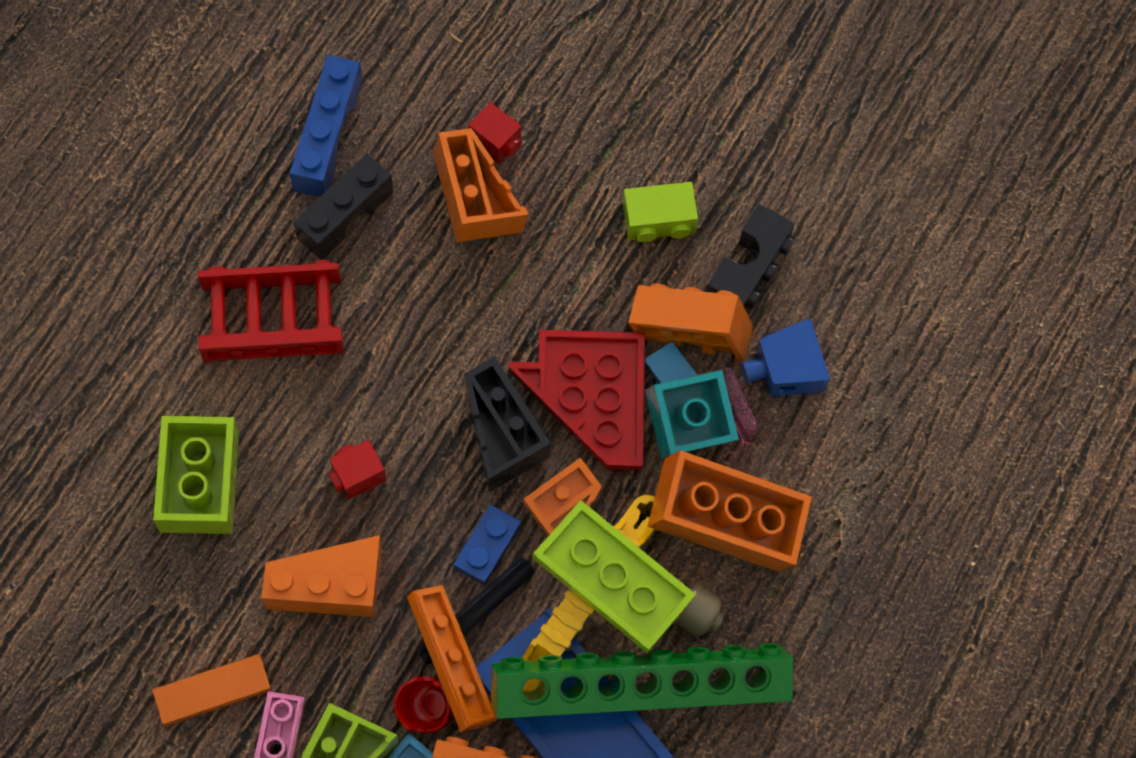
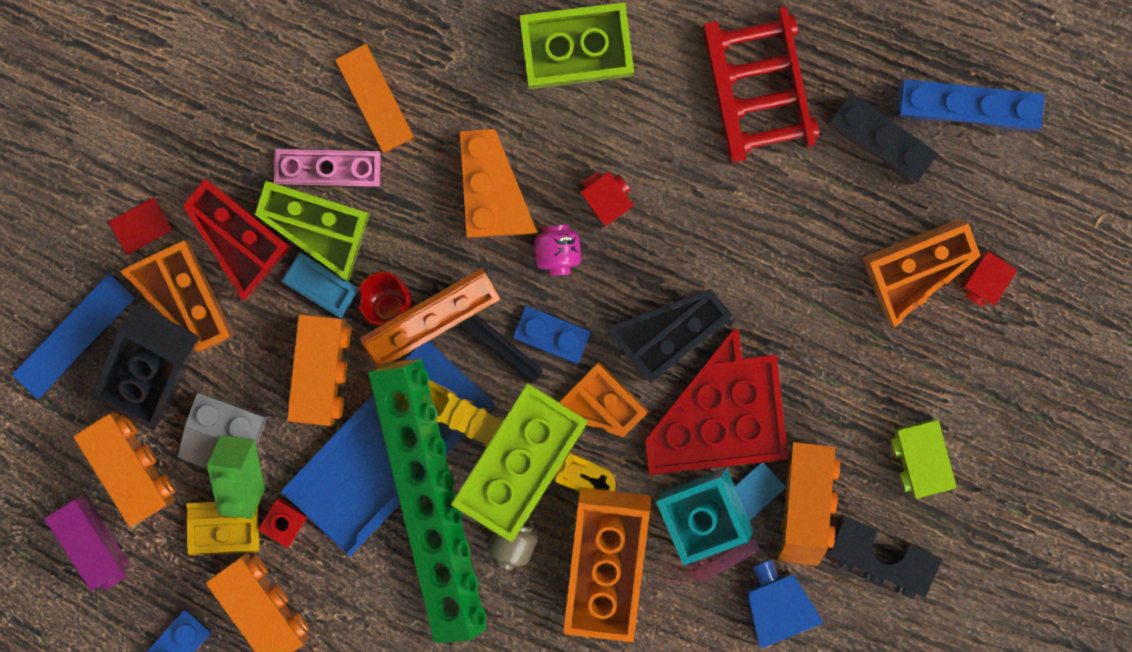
camera: 90 degrees right, 20 degrees up
(401, 523) = (557, 249): none -> dark pink head

